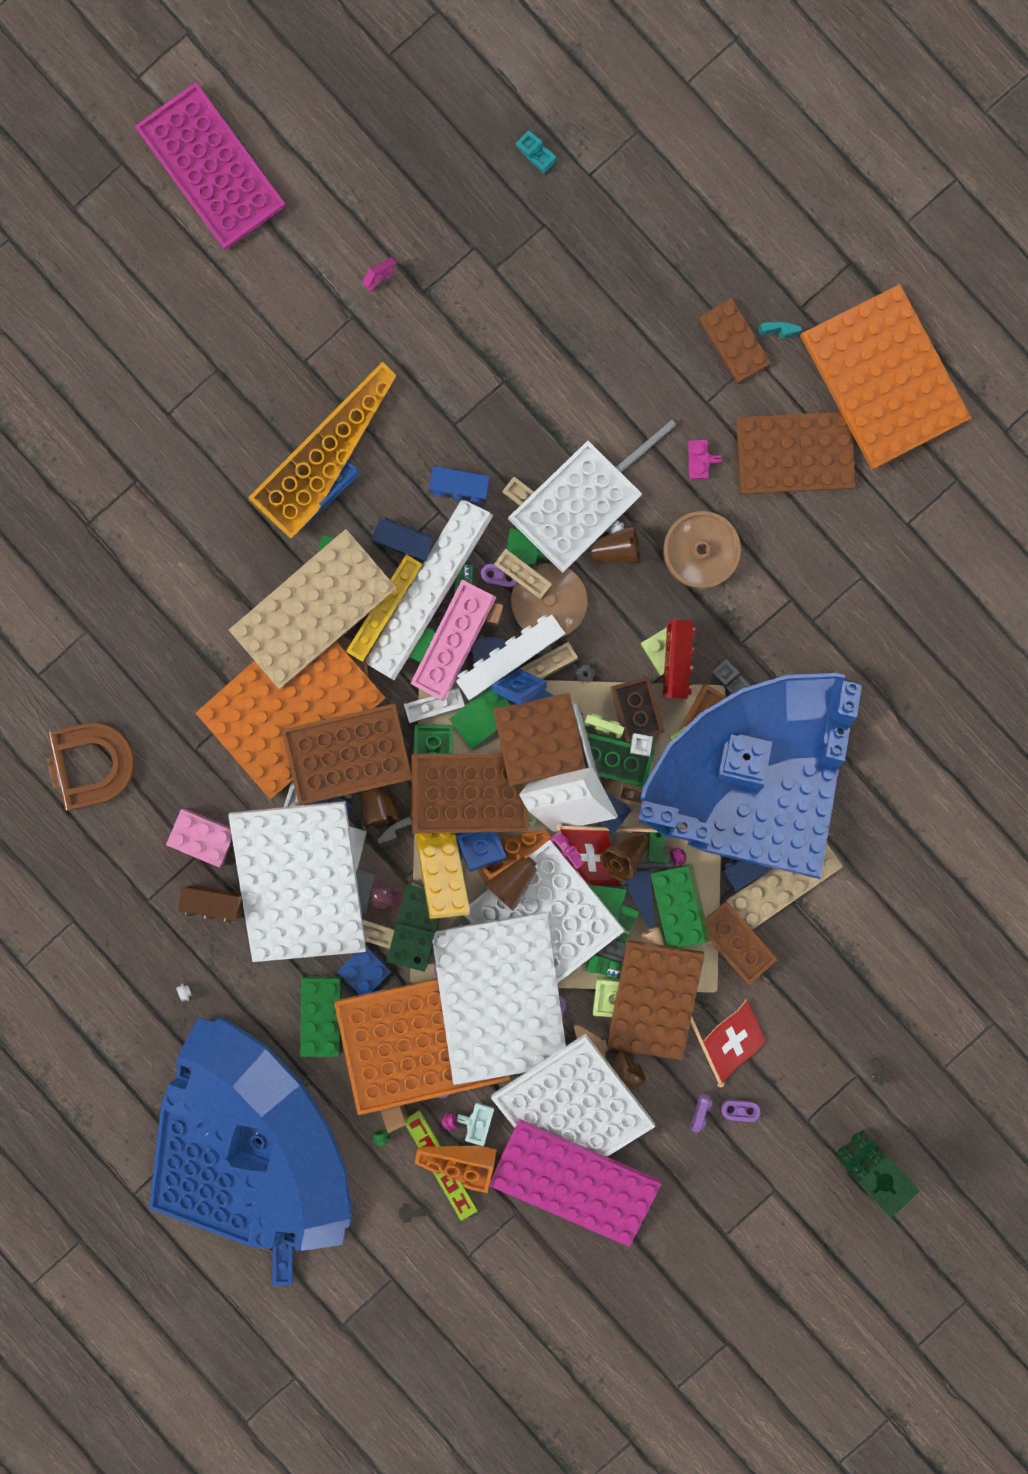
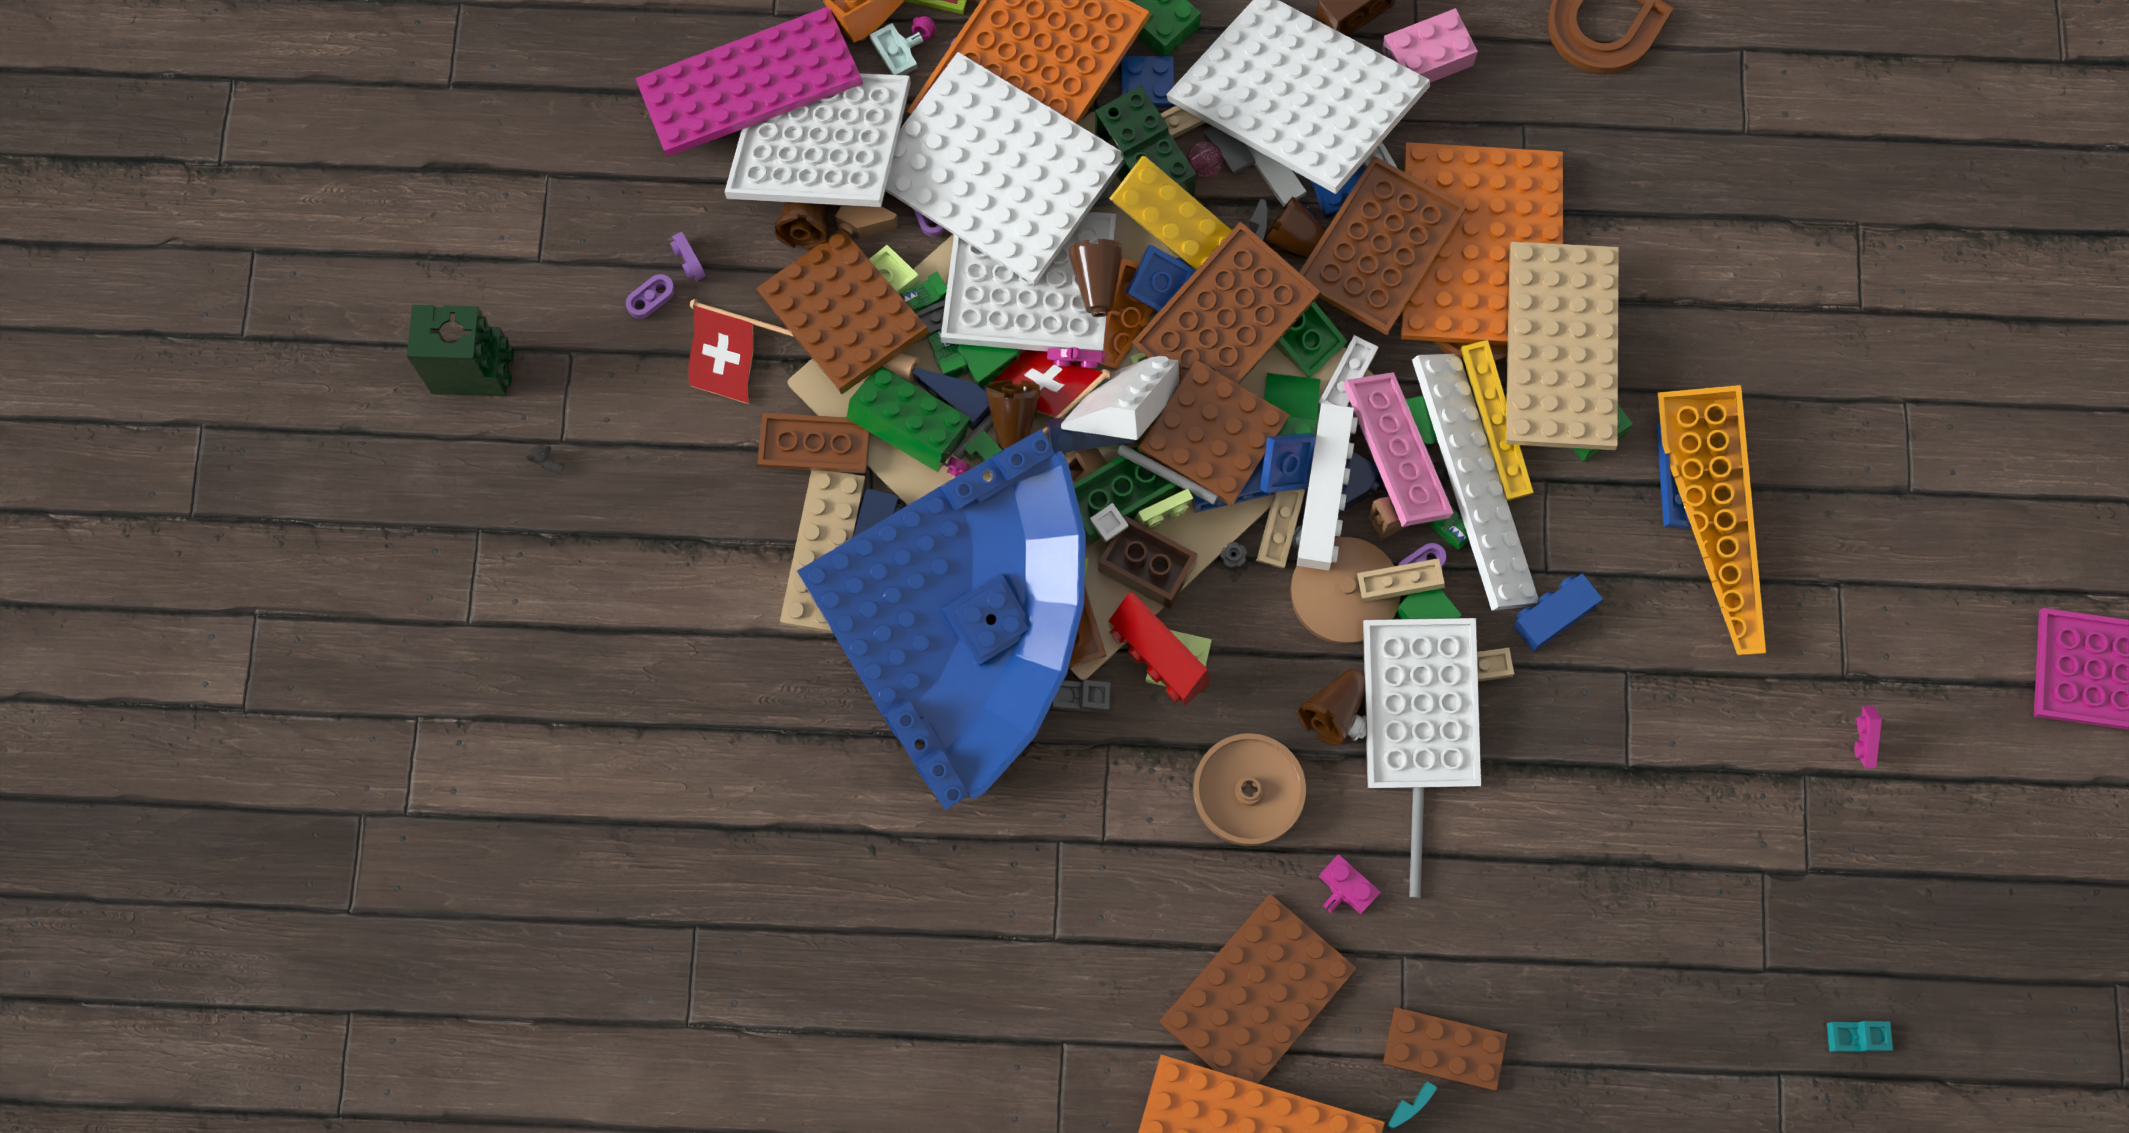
camera: 135 degrees right, 15 degrees down
(402, 539) = (1552, 503): dark blue brick -> none

